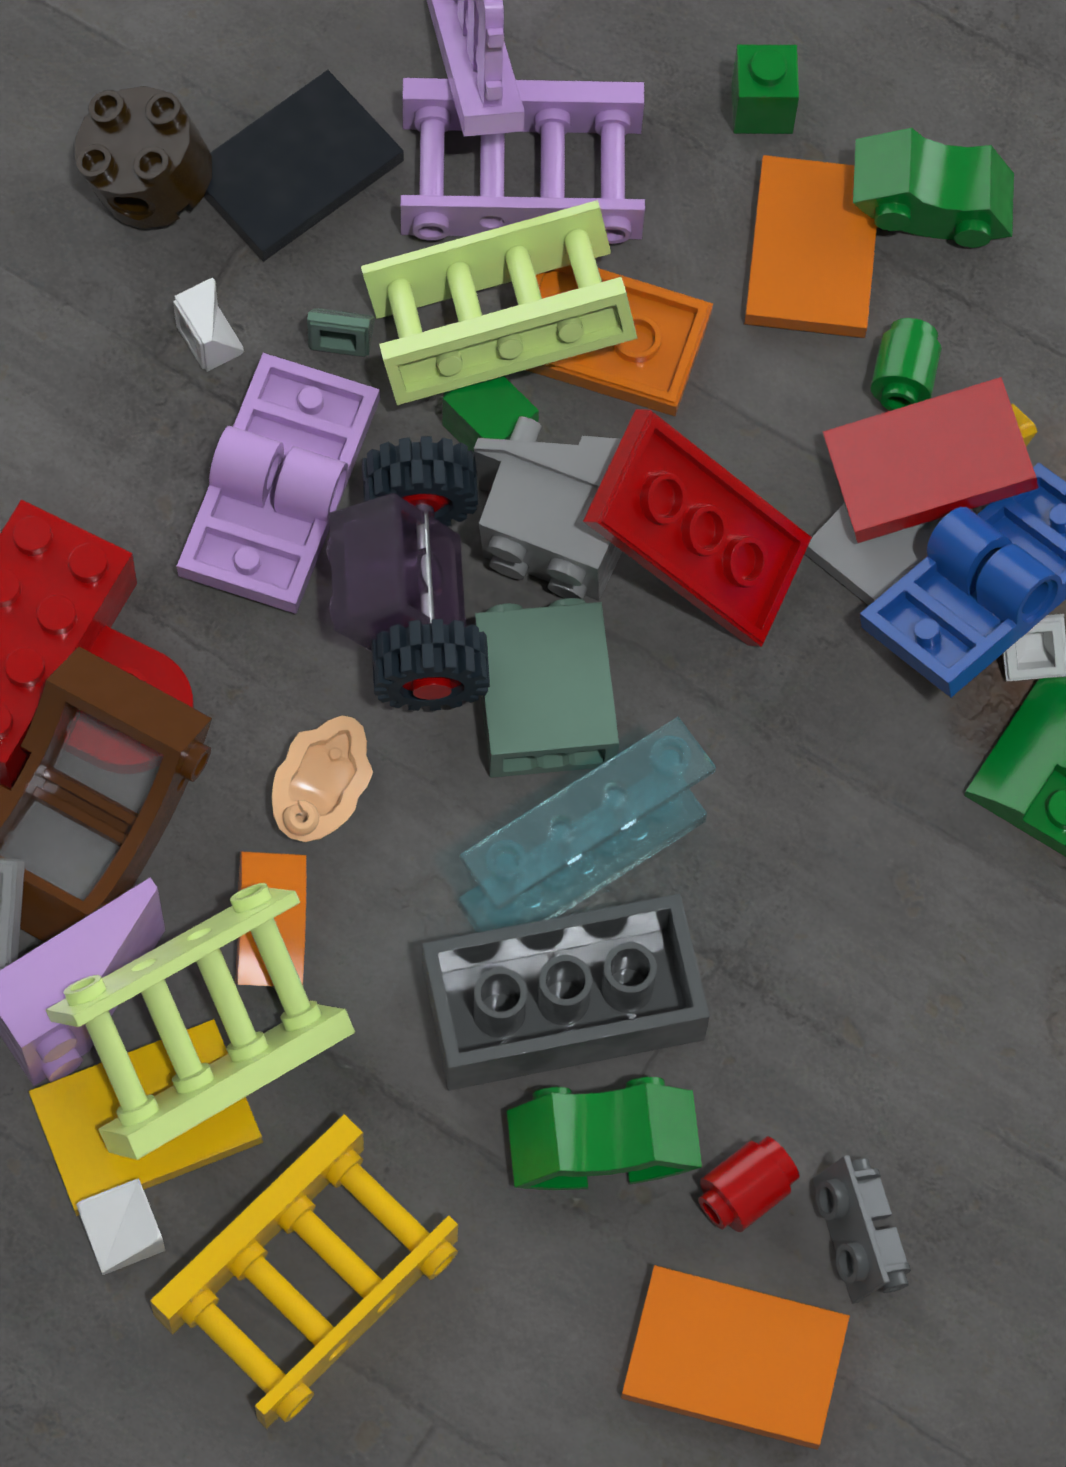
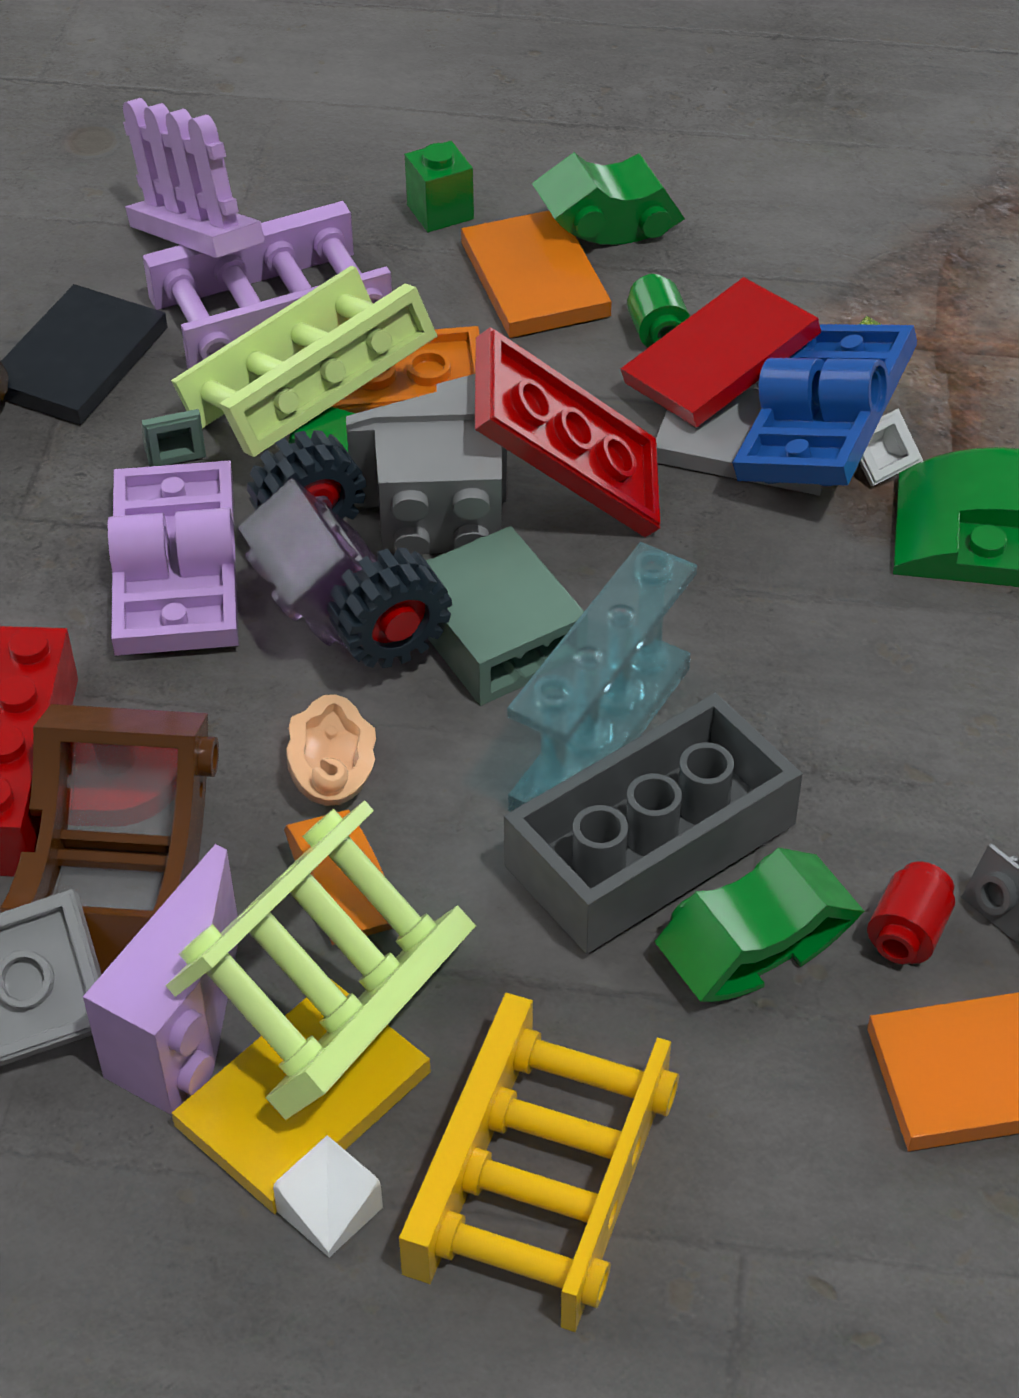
camera: 20 degrees left, 20 degrees down
(205, 326) = (46, 473): white slope -> none

